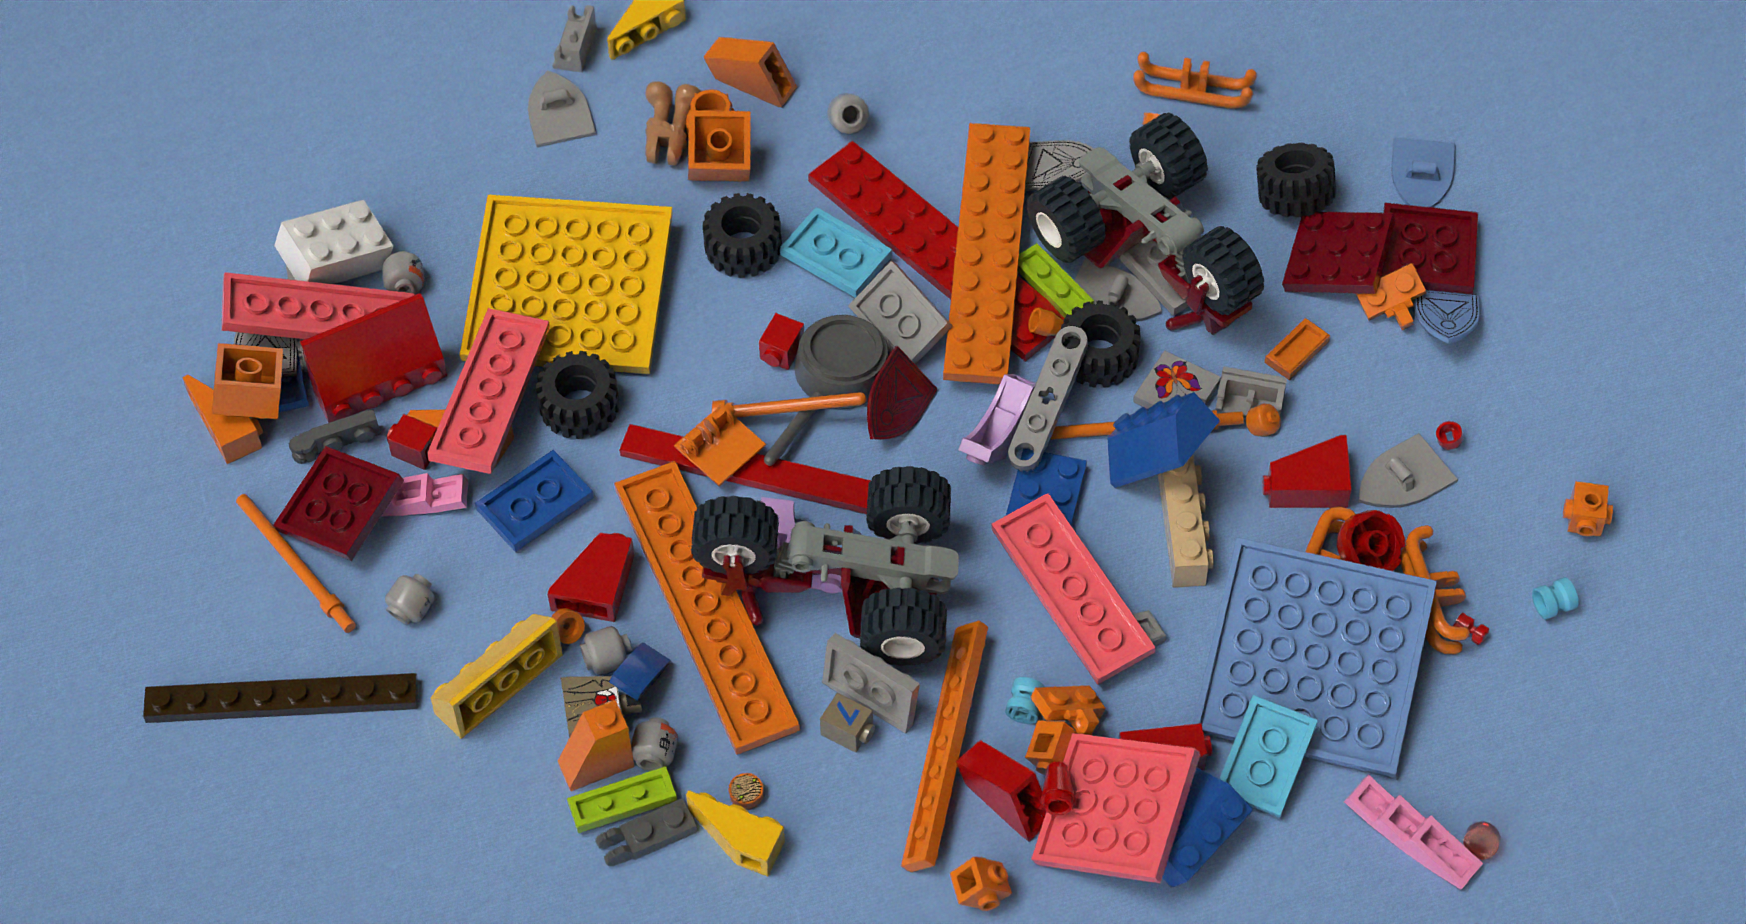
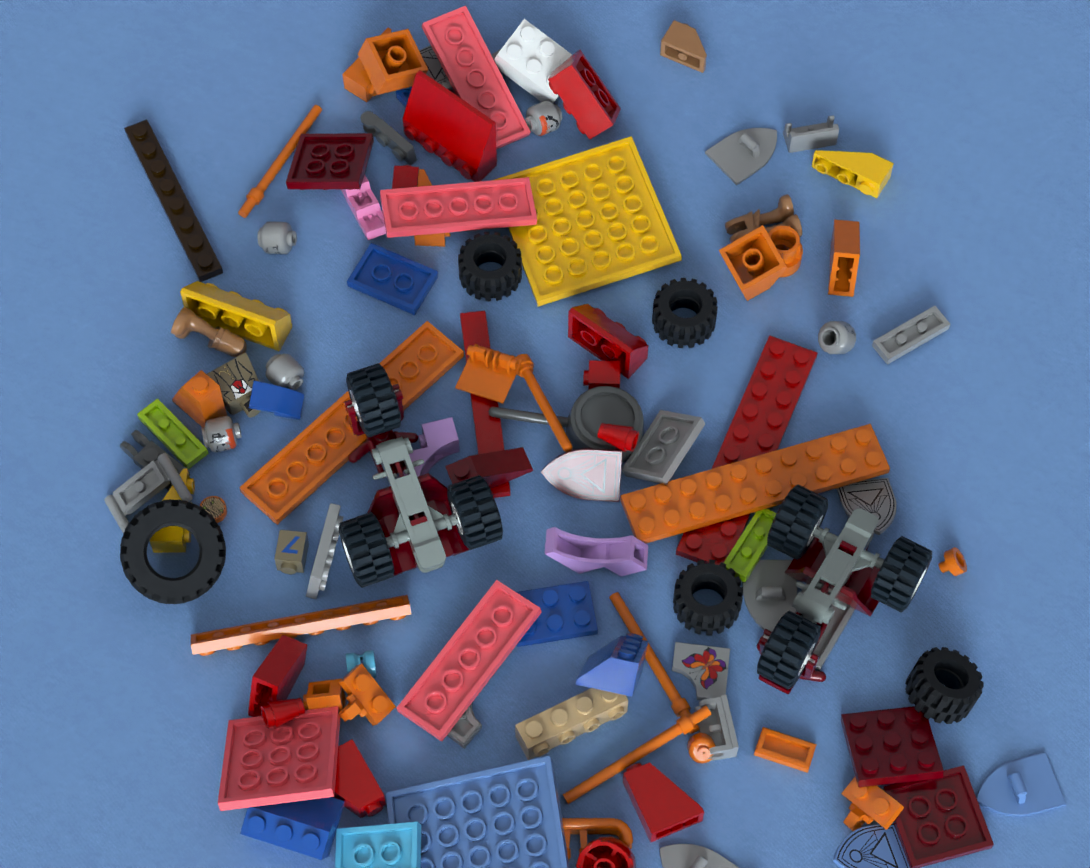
camera: 65 degrees right, 5 degrees up
(389, 106) = (684, 46): none -> medium nougat slope
(410, 215) = (584, 95): none -> red slope
(482, 727) = (220, 338): none -> medium nougat piece
(569, 625) = (296, 341): orange tile -> none
(595, 578) = (345, 343): red slope -> none
(685, 851) = (143, 487): none -> light grey plate
(735, 319) = (606, 338): none -> red slope
(829, 805) = (164, 514): none -> black tyre
(836, 252) = (706, 382): medium azure plate -> none
(847, 487) = (493, 467): none -> dark red slope
(875, 53) = (911, 335): none -> light grey plate
(881, 338) = (619, 436): none -> red cone
(981, 883) = (189, 691): orange brick -> none
(1040, 418) = (647, 576): light grey piece -> none
(1044, 322) = (704, 549): orange hose -> none
(1193, 83) = (1010, 574): orange piece -> none
(1238, 421) = (683, 725): none -> orange bar

